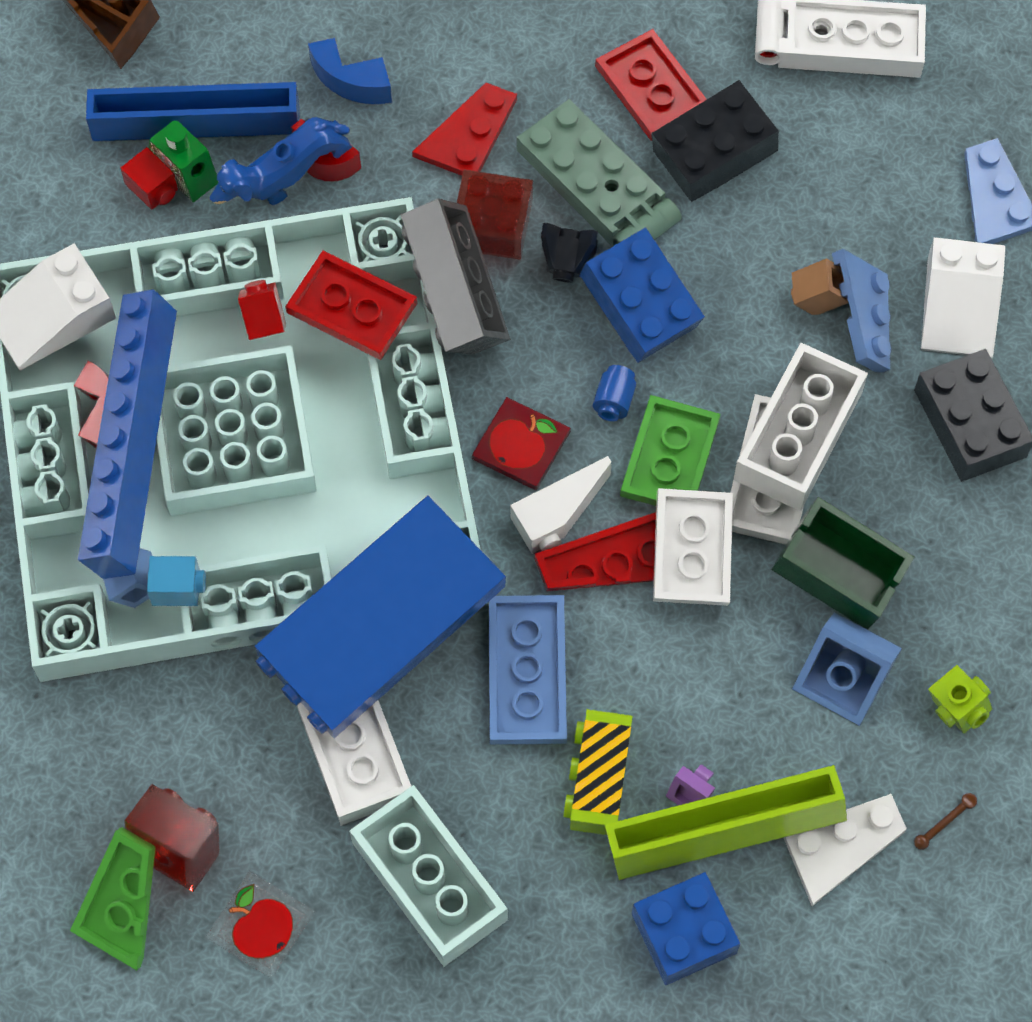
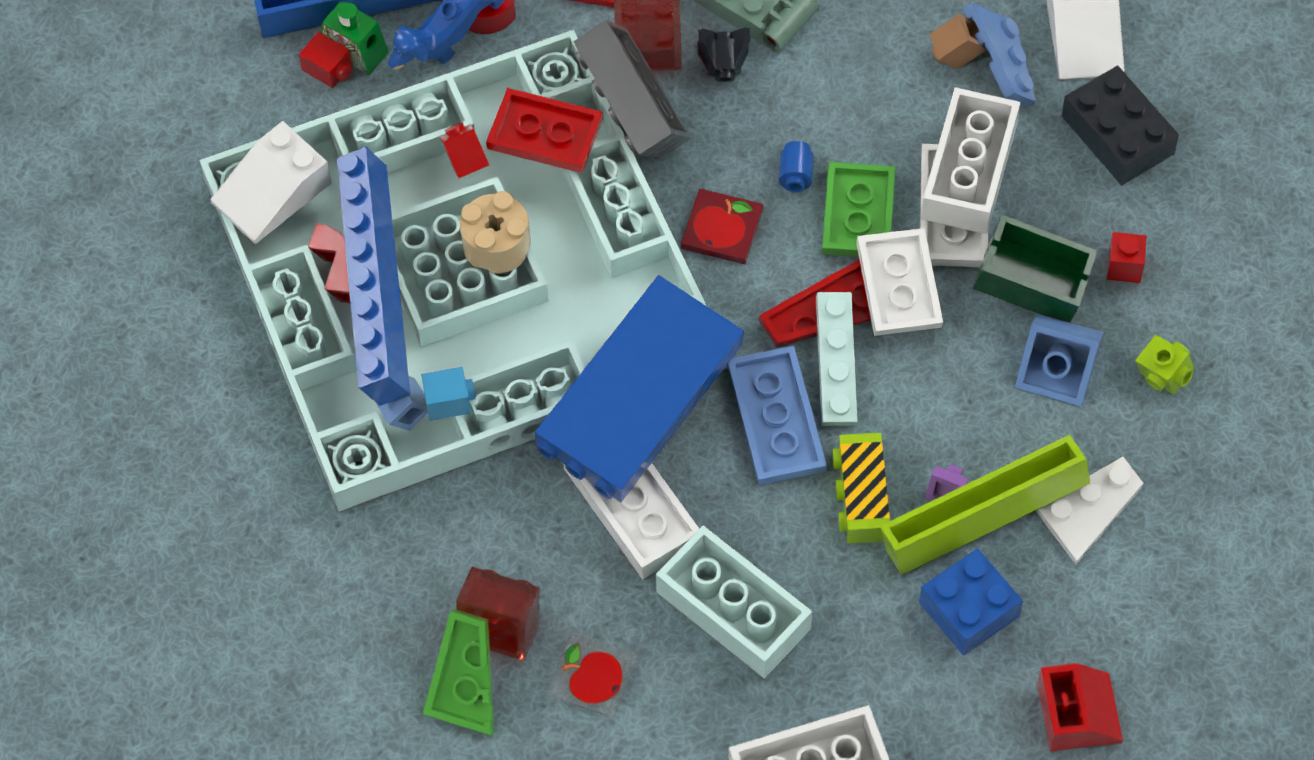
camera: 10 degrees left, 5 degrees down
(269, 410) = (495, 232): none -> tan brick
(552, 511) = (765, 277): white slope -> none
(606, 619) = (836, 359): none -> light aqua plate
(641, 295) = (800, 77): blue brick -> none
(946, 567) = (1126, 257): none -> red brick
(967, 802) = (1191, 451): reddish brown hinge -> none

